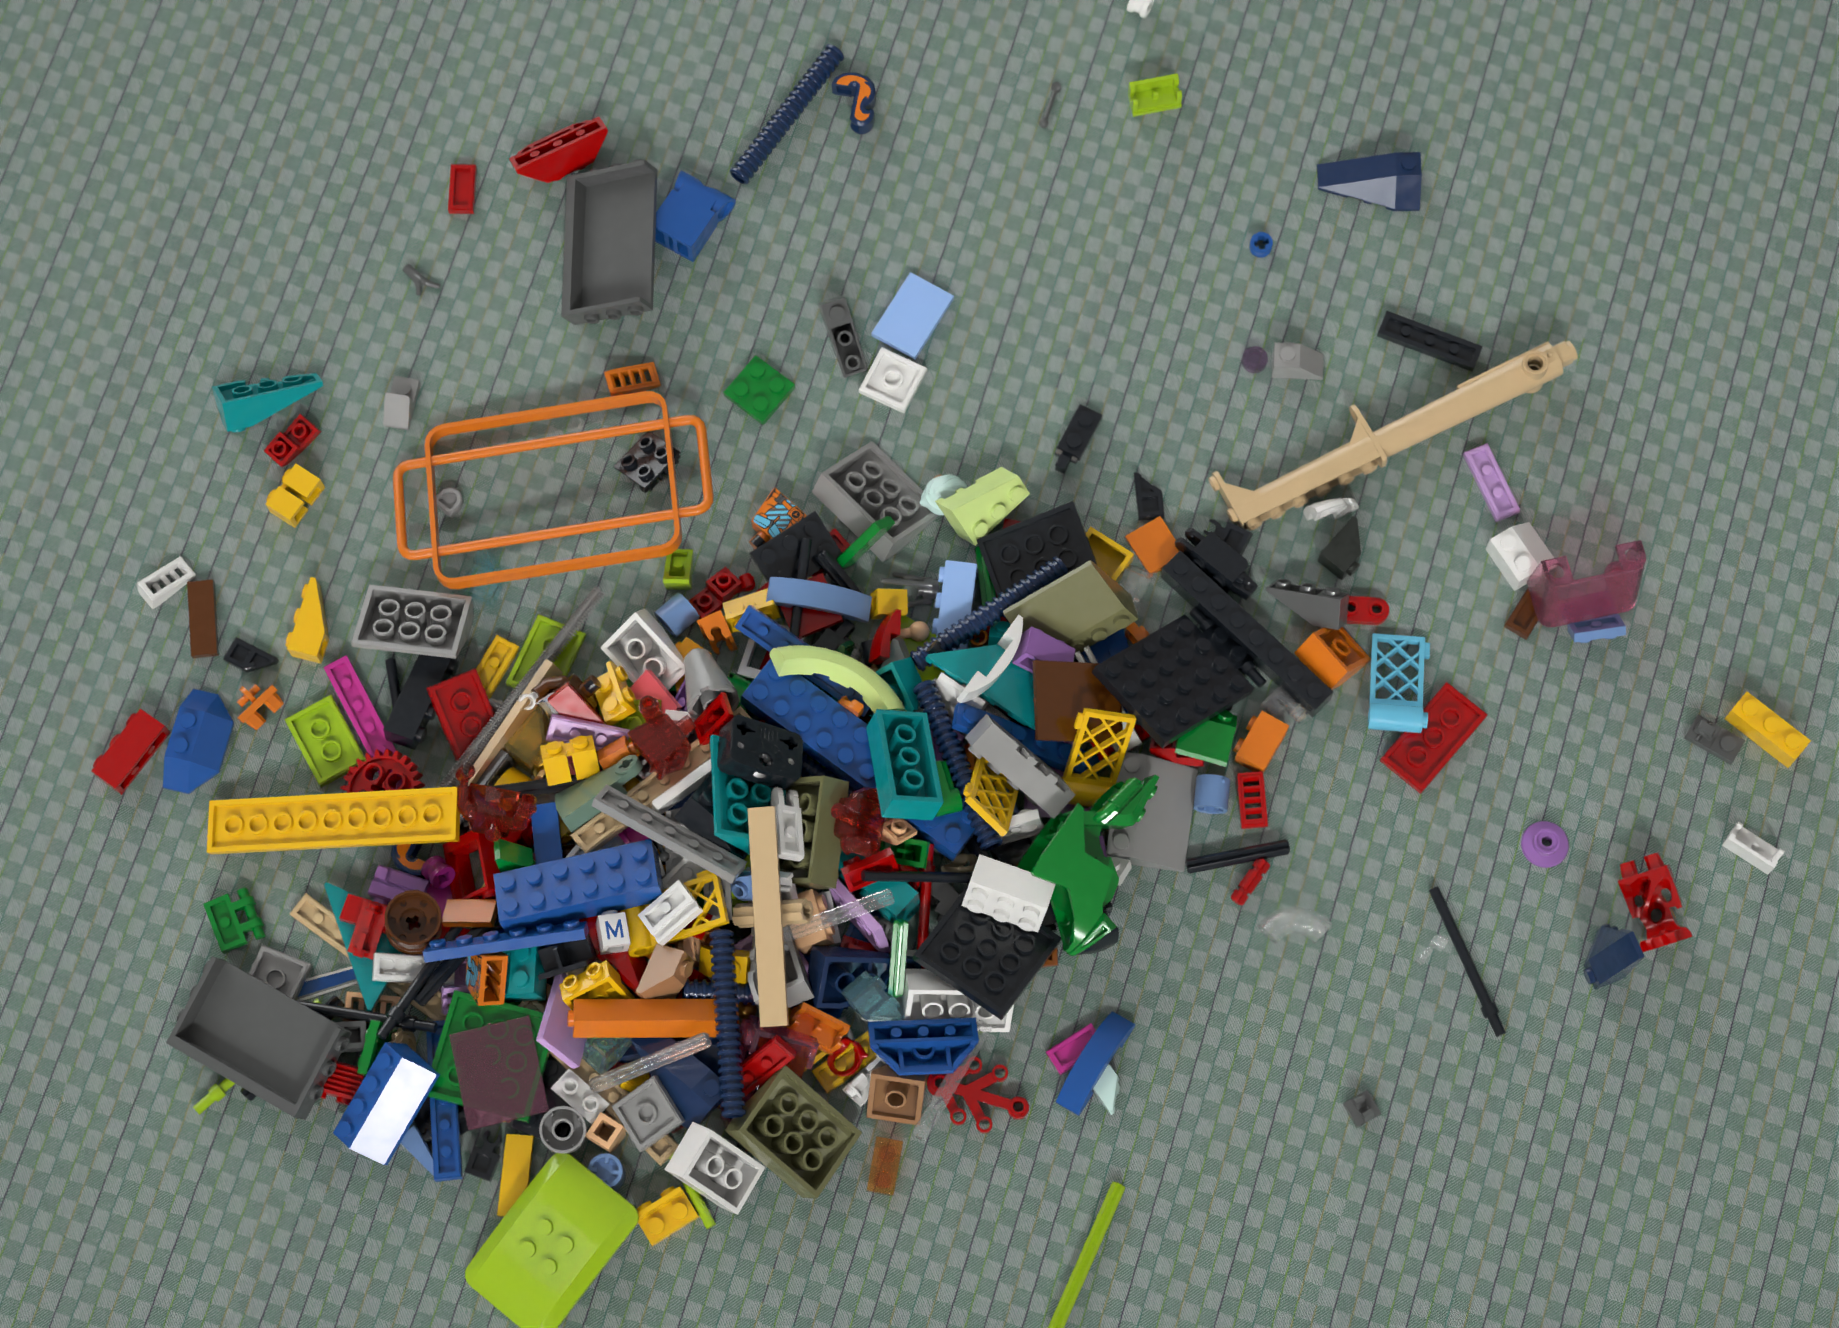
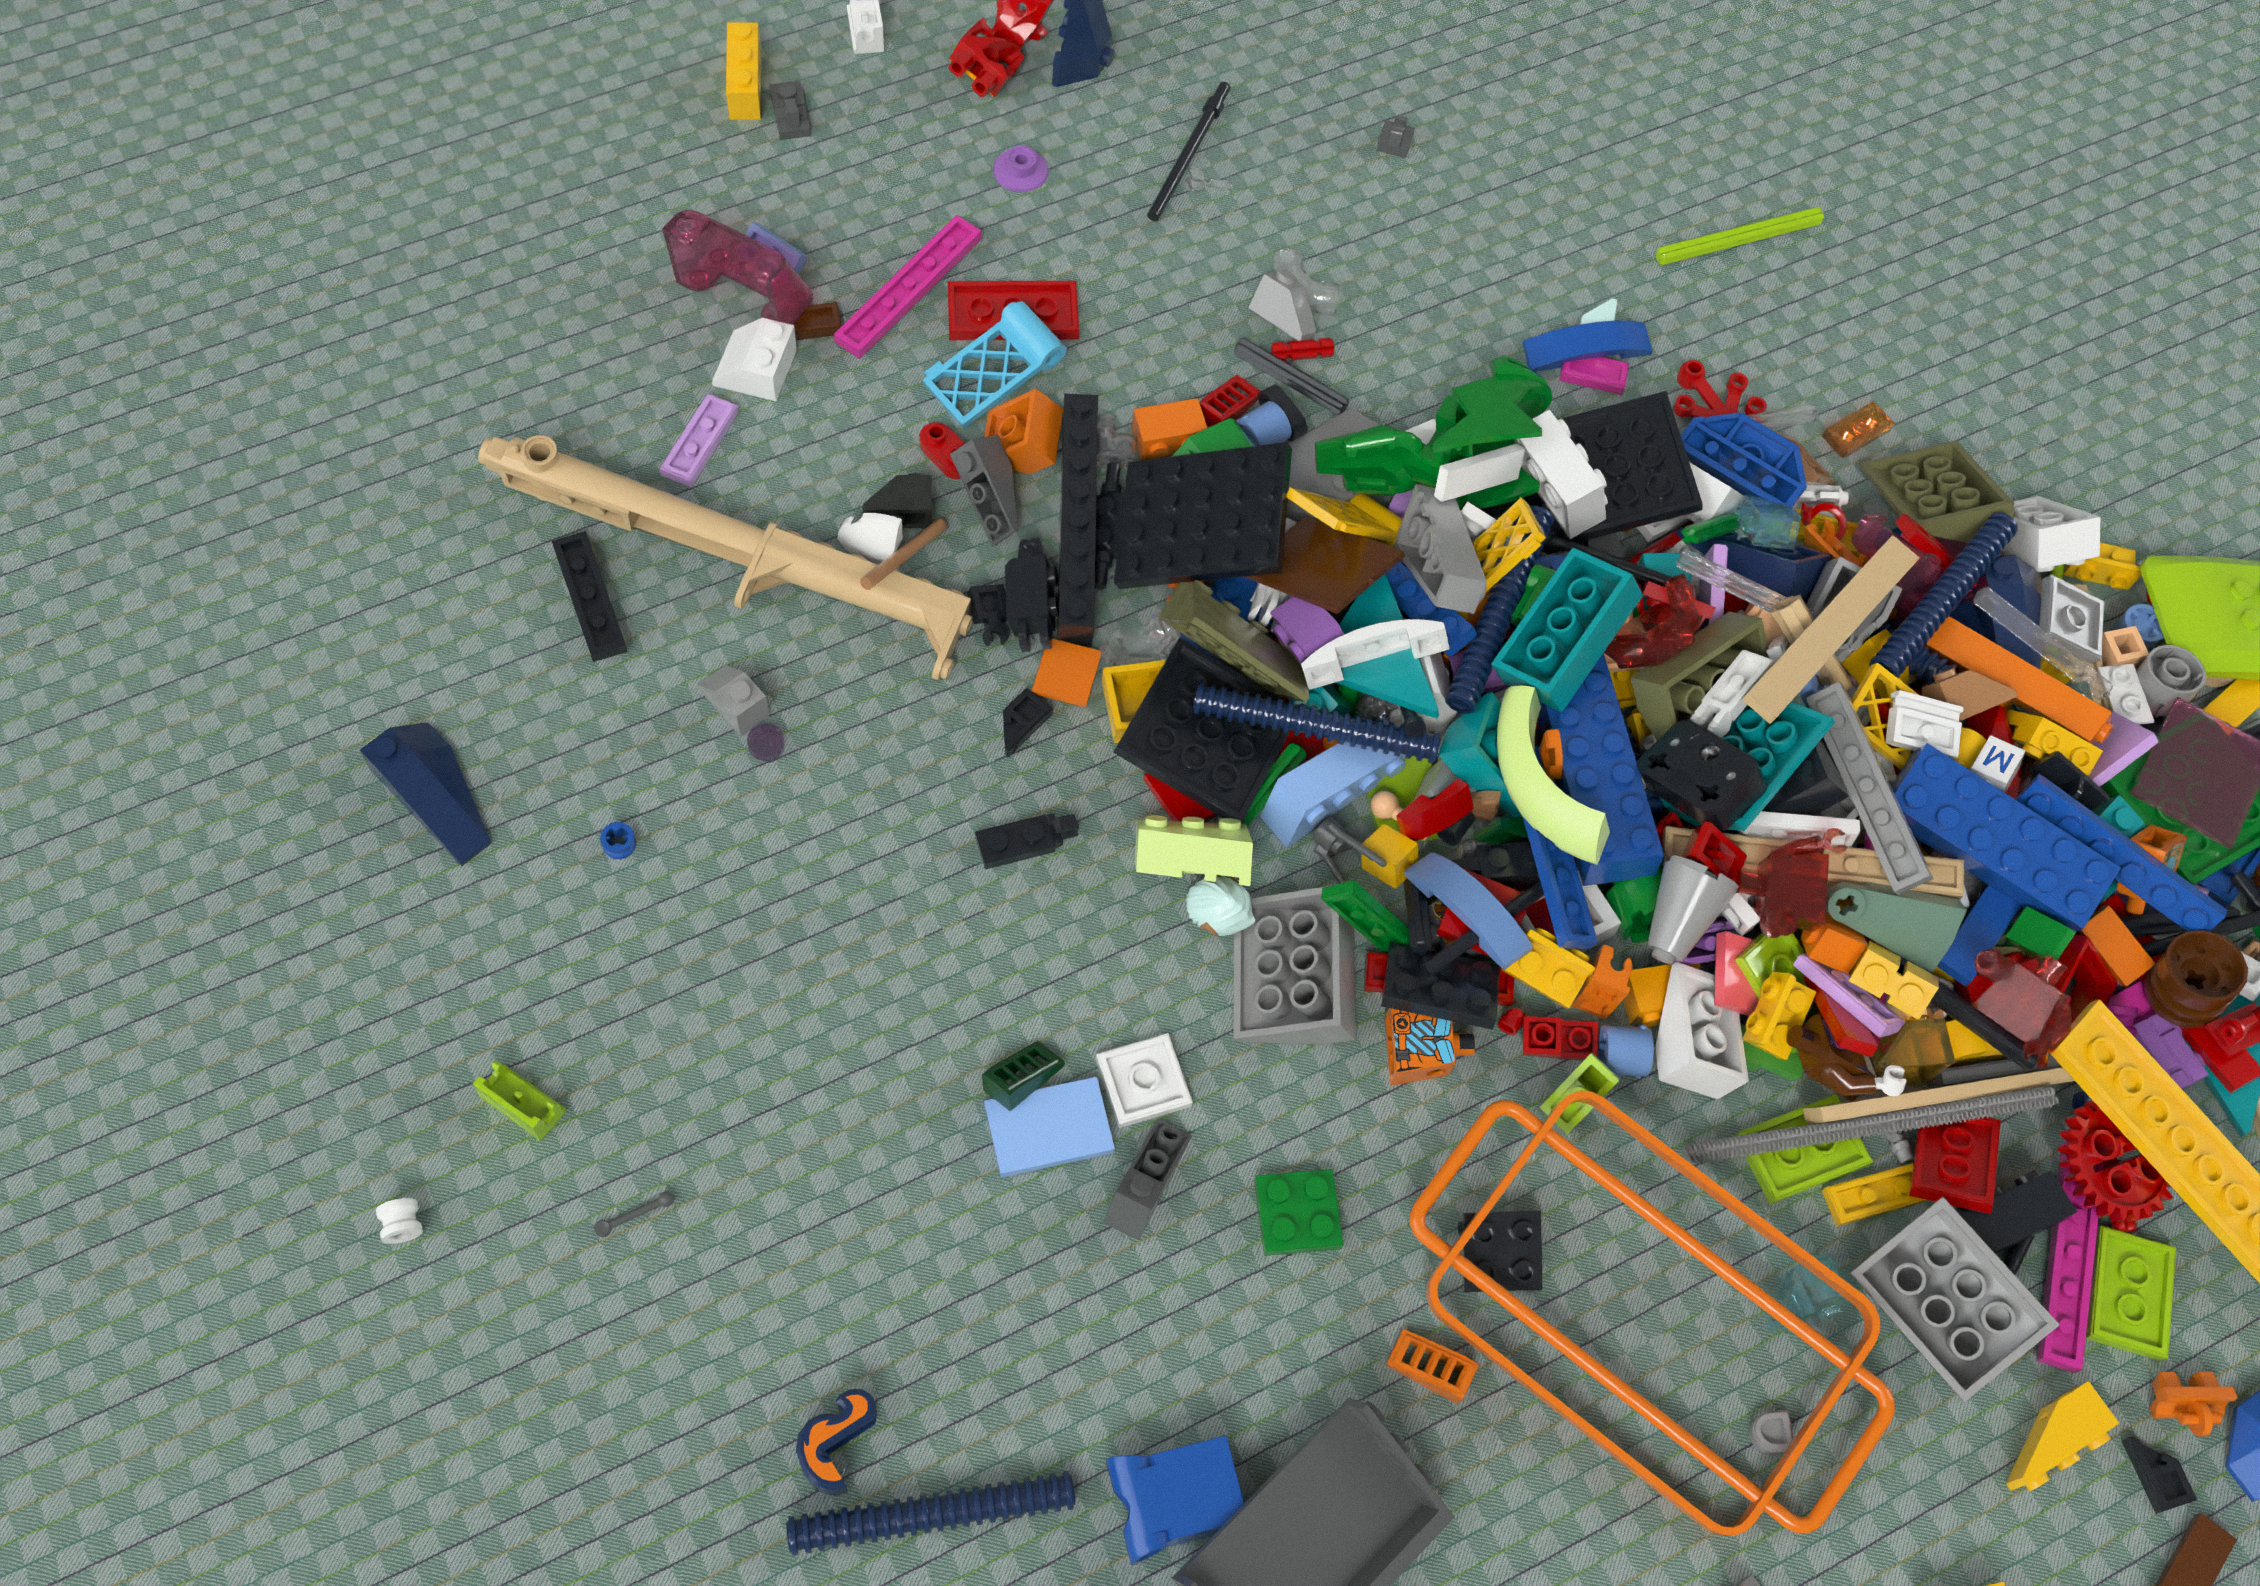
camera: 145 degrees left, 10 degrees down
(940, 322) = (1013, 1094): none -> dark green slope
(1051, 823) = (1479, 472): none -> white tile
(1214, 821) = (1295, 417): none -> black beam
(1285, 892) = (1284, 304): none -> light grey slope
(1303, 513) = (903, 554): none -> medium nougat bar
(1503, 688) = (907, 287): none -> dark pink plate

